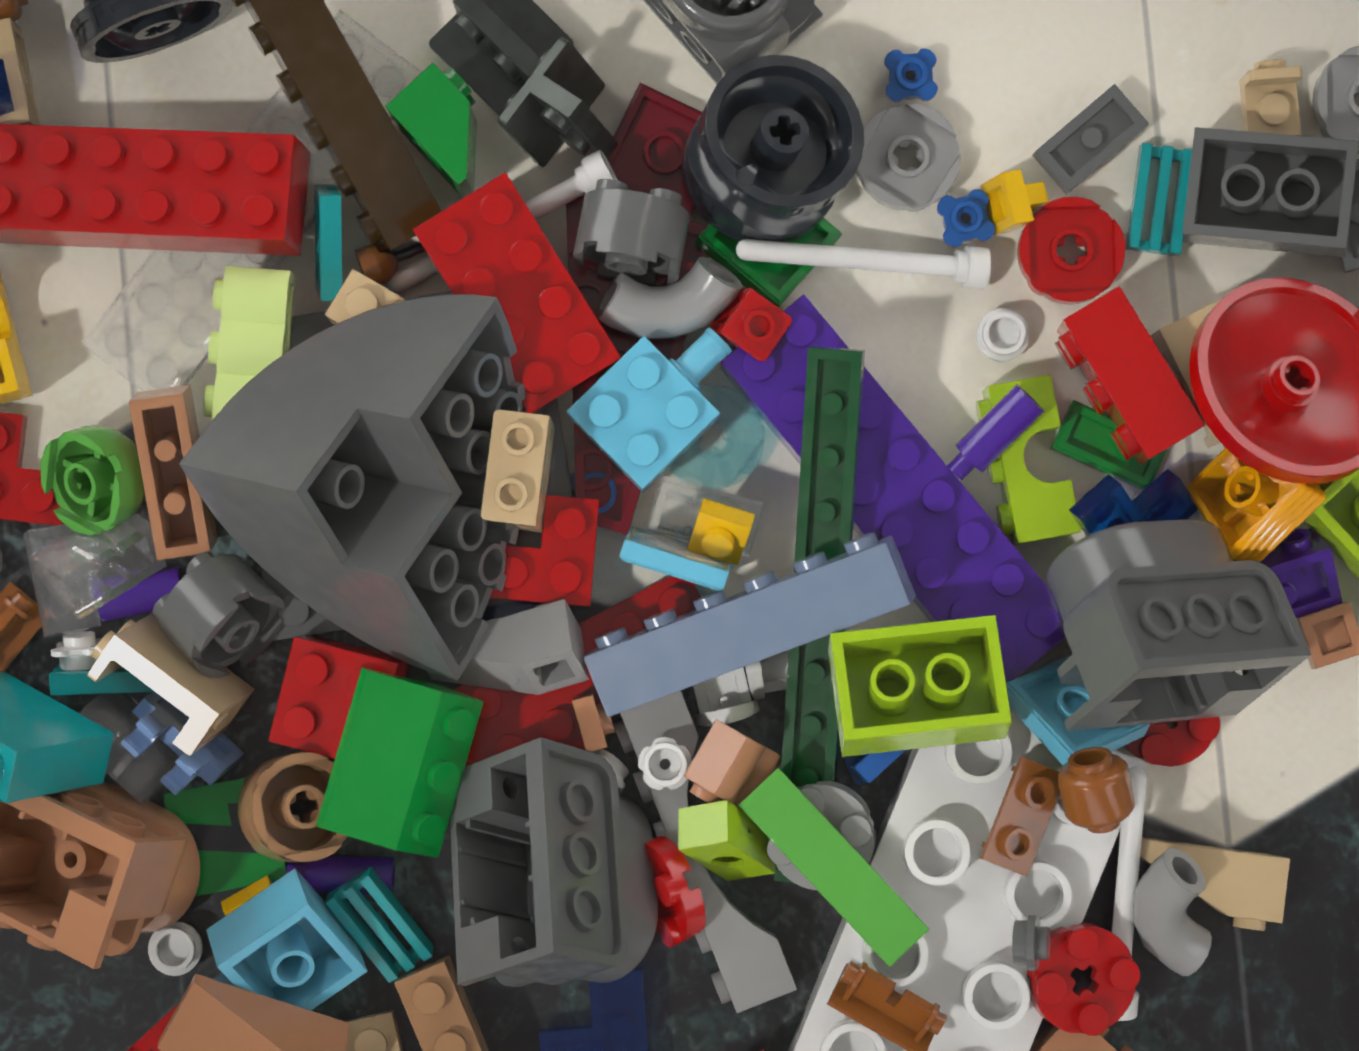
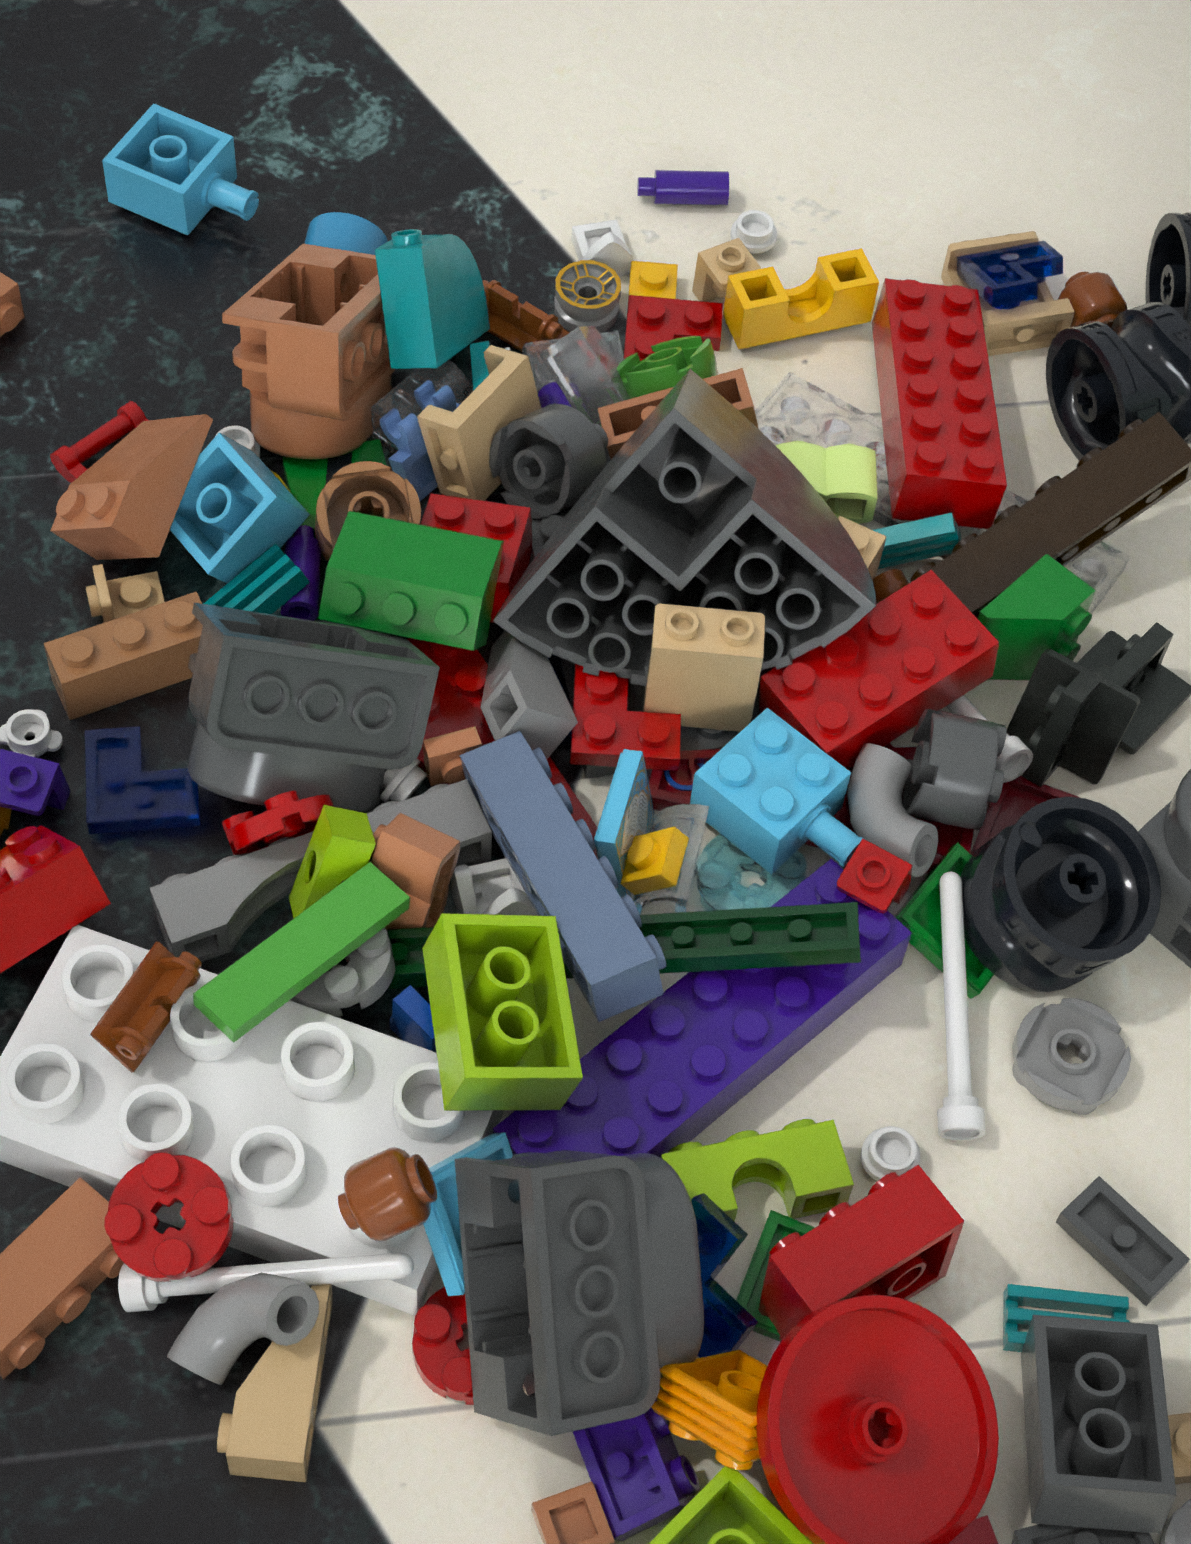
camera: 85 degrees right, 30 degrees down
(650, 760) = (416, 798): white plate -> none
(903, 88) = (1155, 1071): blue plate -> none
(955, 230) = (1009, 1129): blue plate -> none
(995, 432) = (785, 1118): dark purple cylinder -> none
(1012, 200) = (1041, 1159): yellow tile -> none
(1022, 816) = (351, 1127): dark orange hinge -> none
(1030, 942) = (214, 1134): dark grey plate -> none
(1092, 229) = (1026, 1208): red plate -> none

